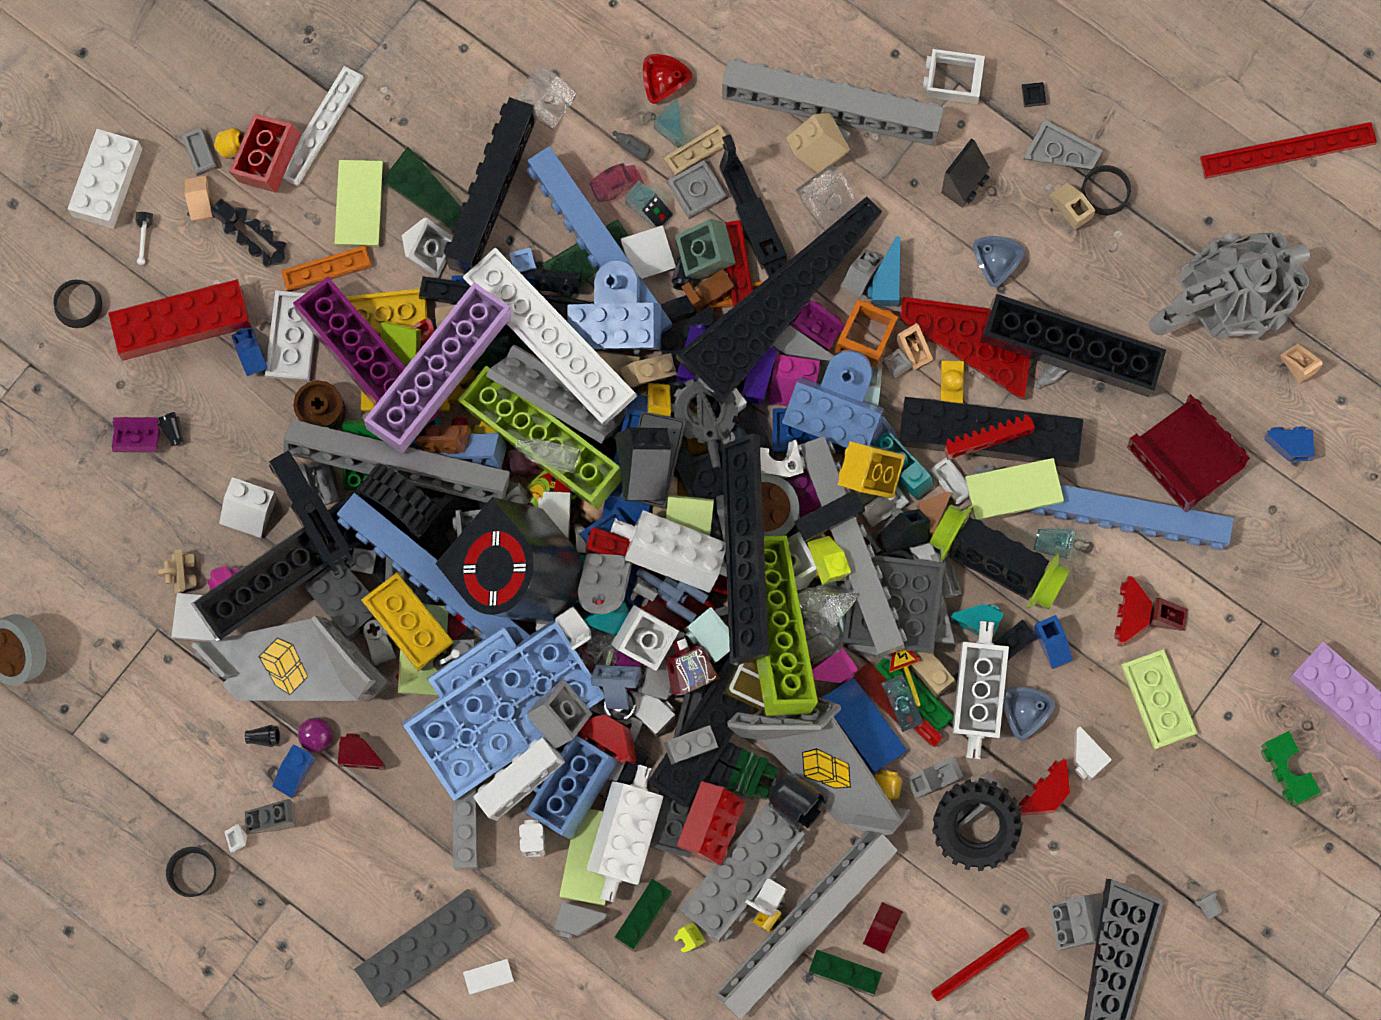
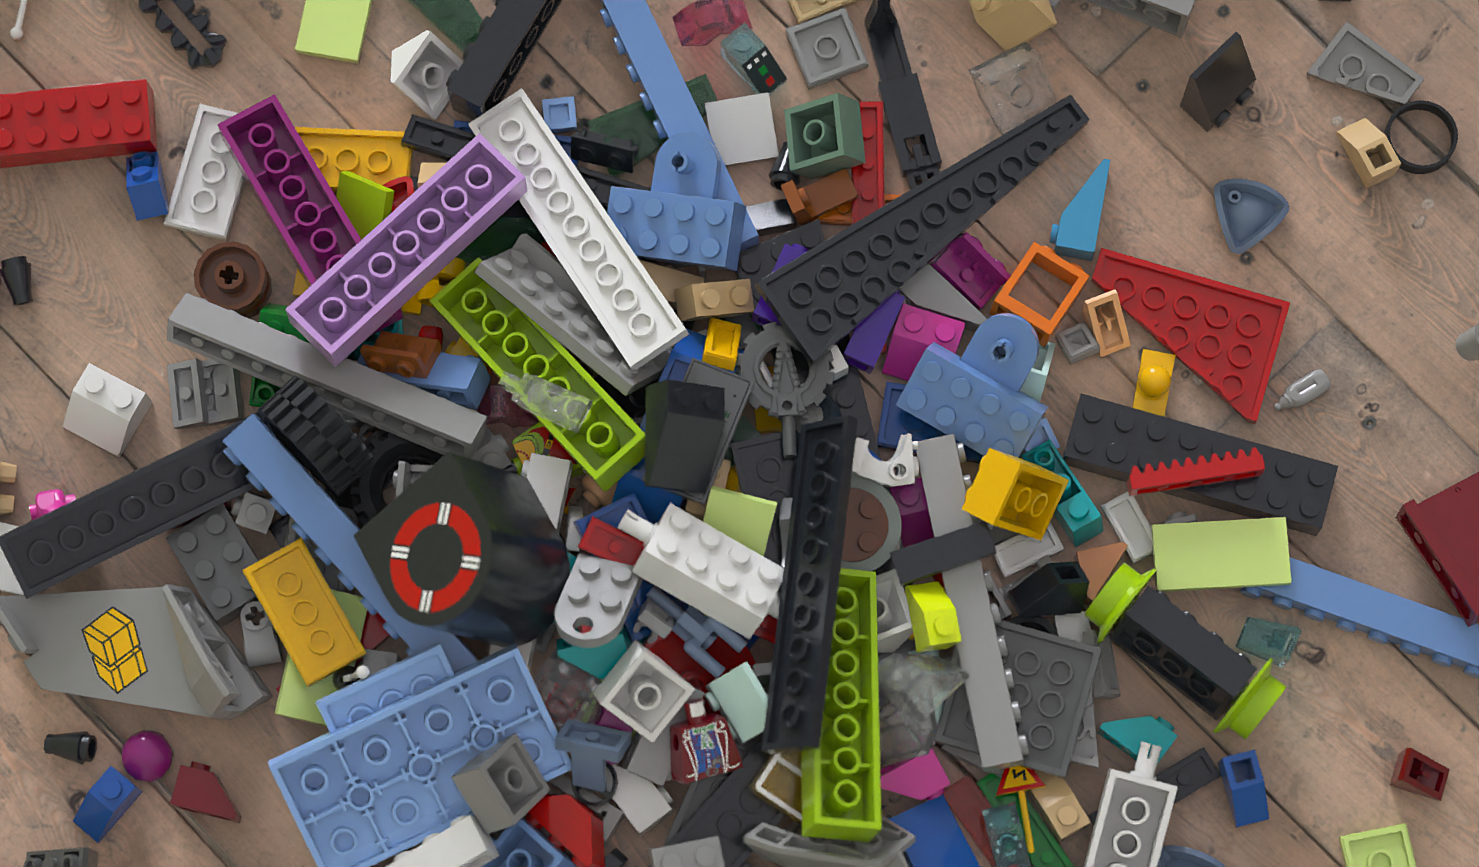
camera: 10 degrees right, 0 degrees up
(311, 513) = (190, 433): black hinge -> none
(330, 266) = (283, 81): orange tile -> none
(574, 627) = (542, 660): white bracket -> none
(861, 272) = (1046, 204): light grey slope -> none
(1072, 345) = (1339, 356): black brick -> none
(1134, 611) = (1369, 761): red slope -> none

